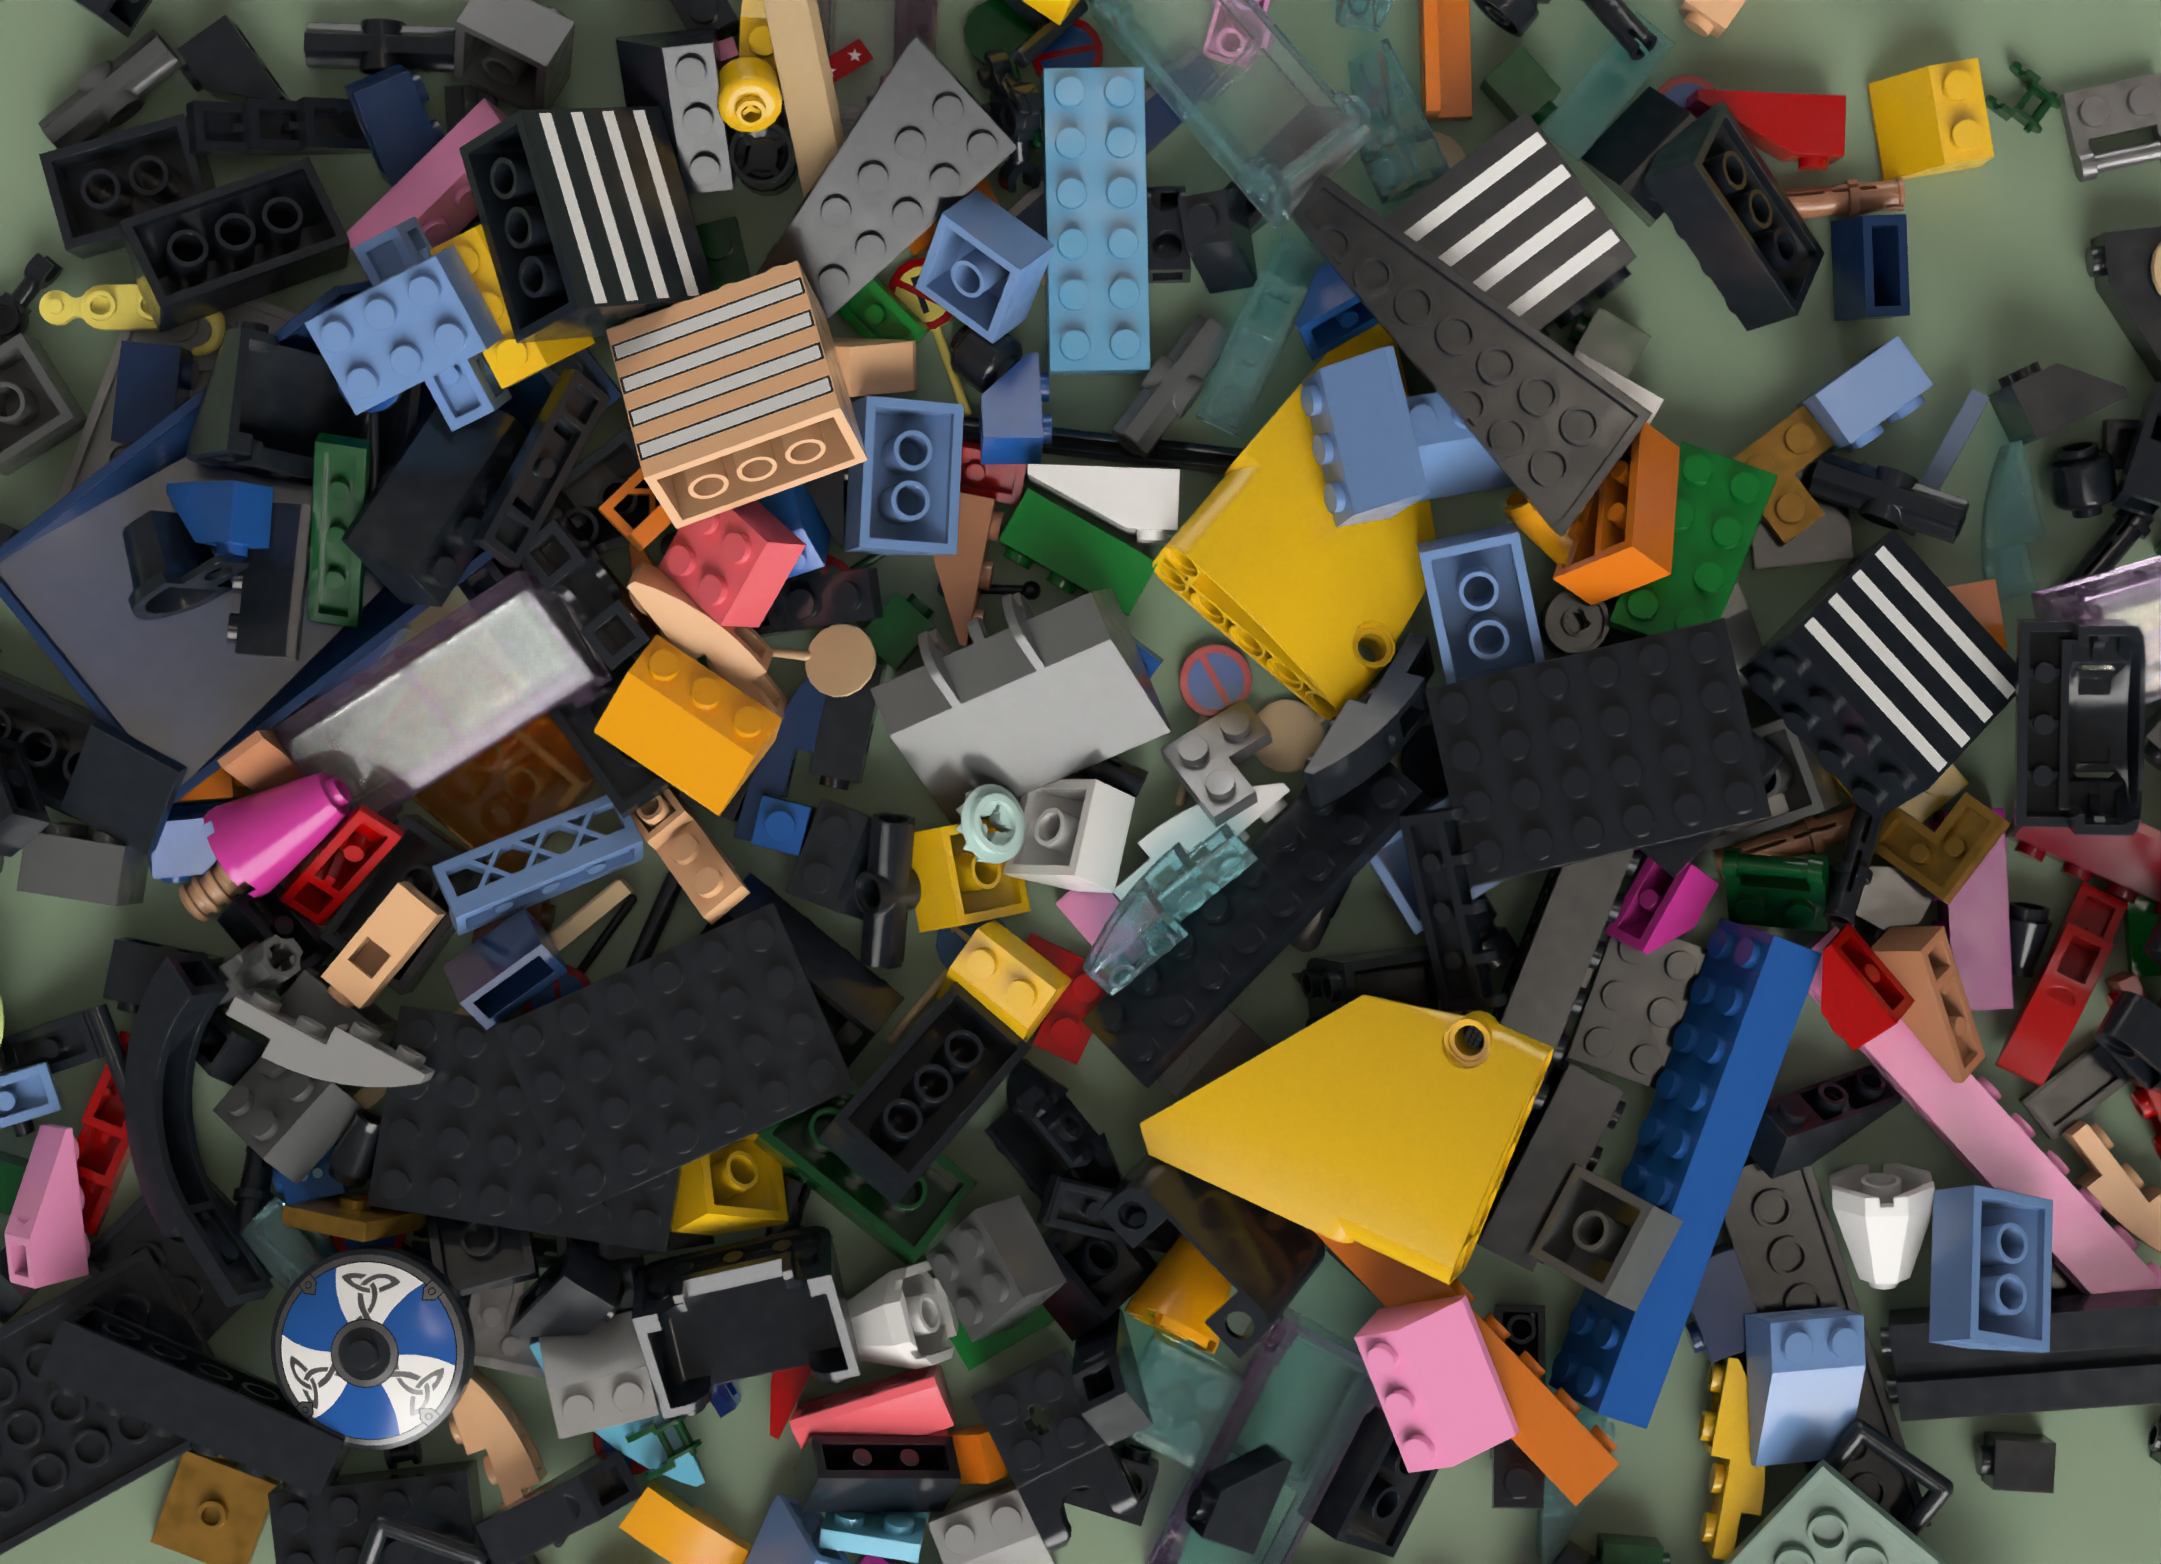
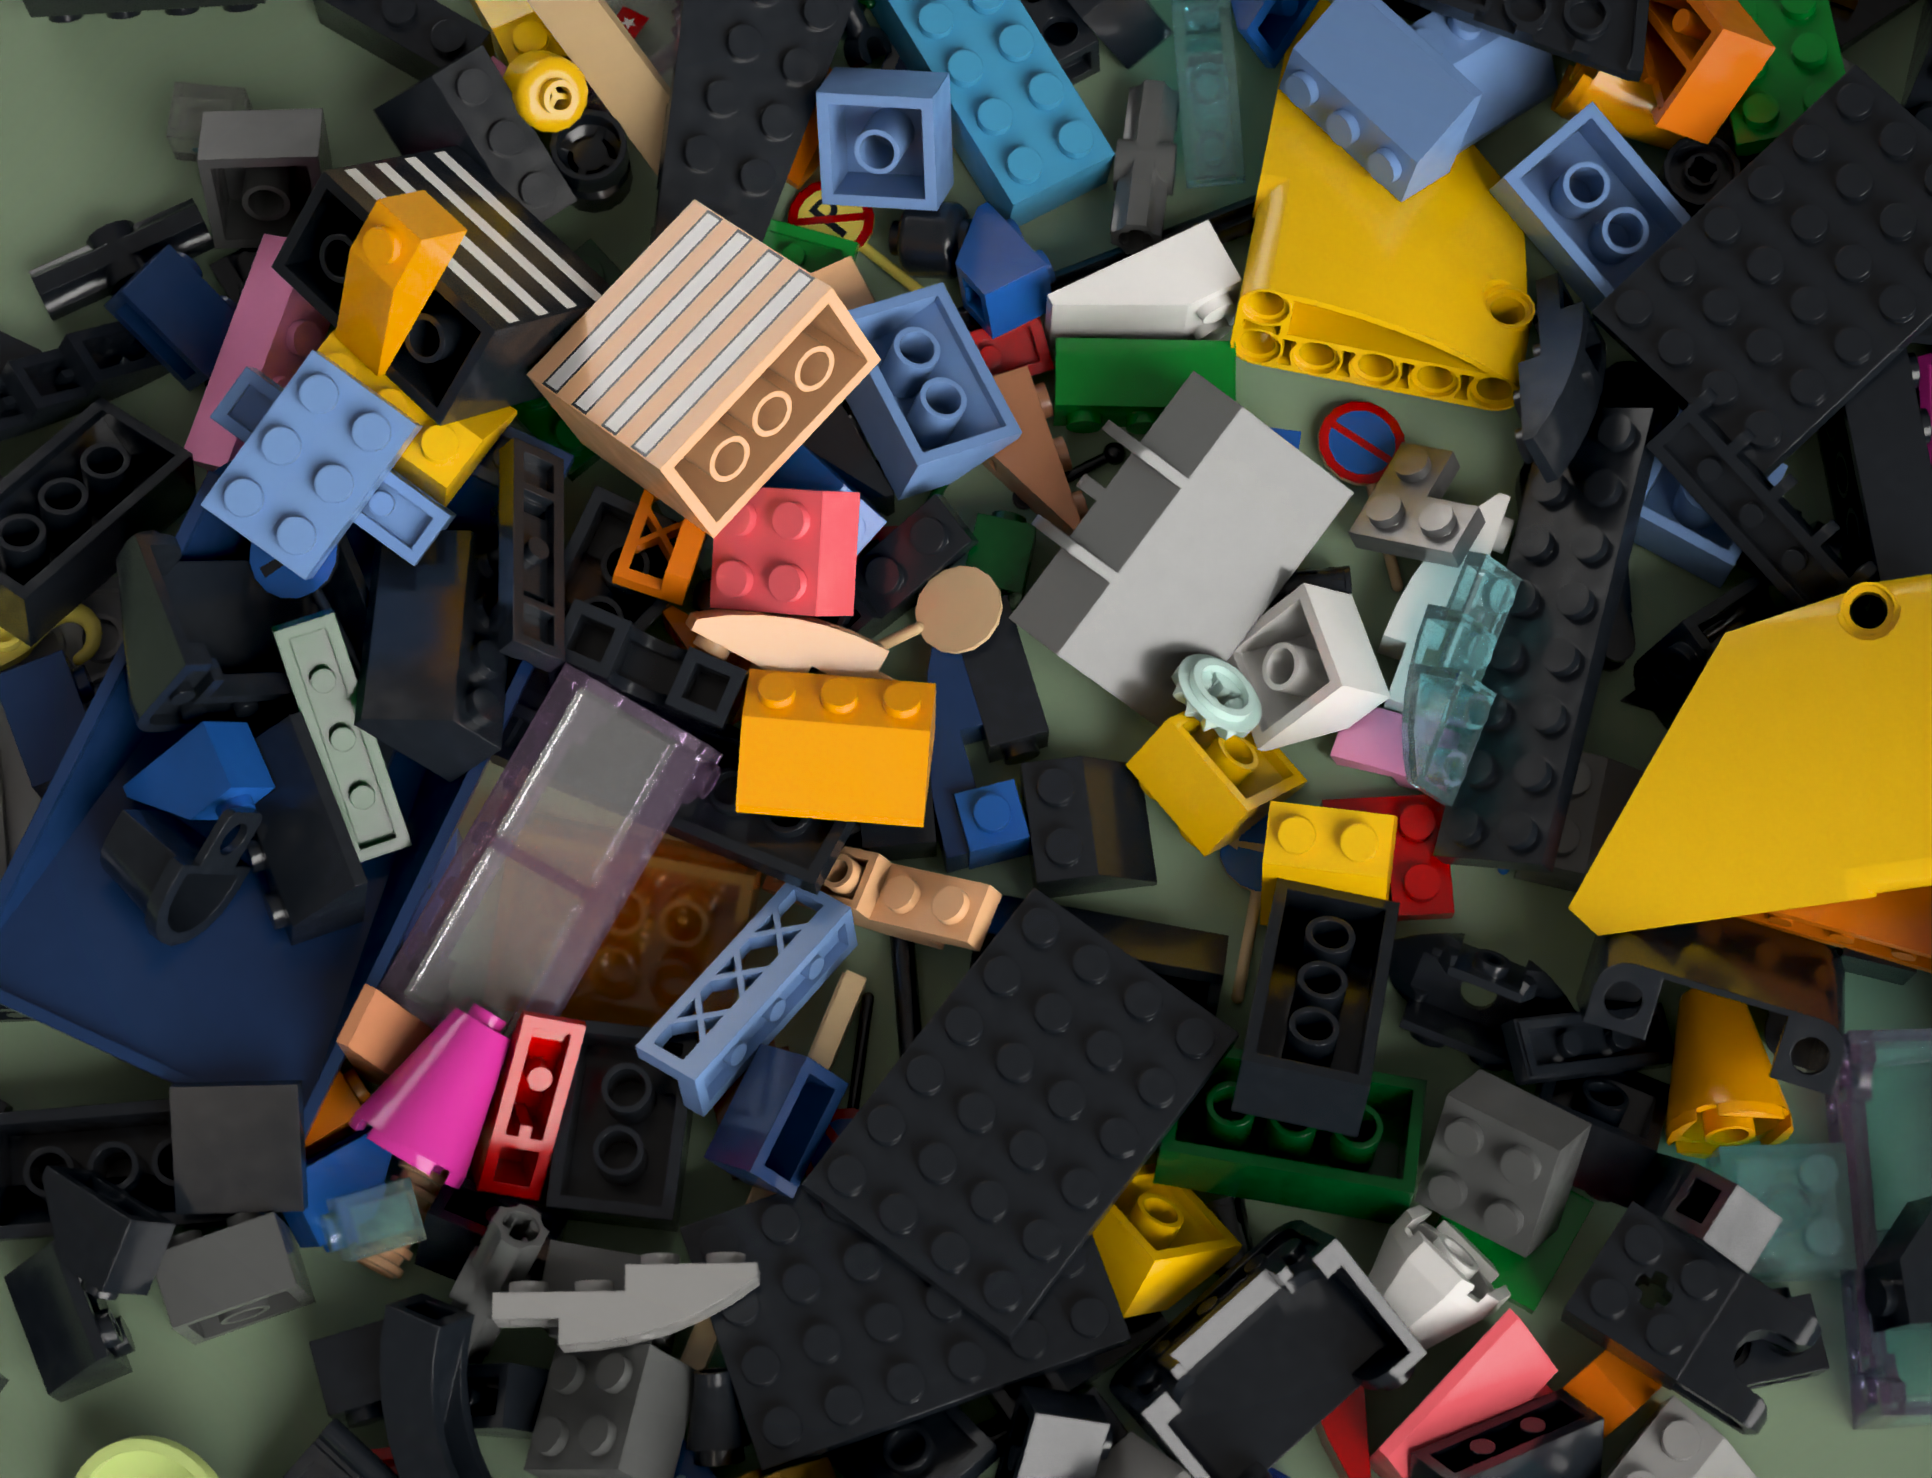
camera: 25 degrees left, 15 degrees down
(193, 885) = (373, 1220): none -> clear light blue brick
(382, 946) = (625, 1166): light nougat brick -> none
(530, 223) = (393, 274): none -> light orange slope
(887, 890) = (1146, 827): black piece -> none
(1294, 733) = (1482, 457): tan piece -> none

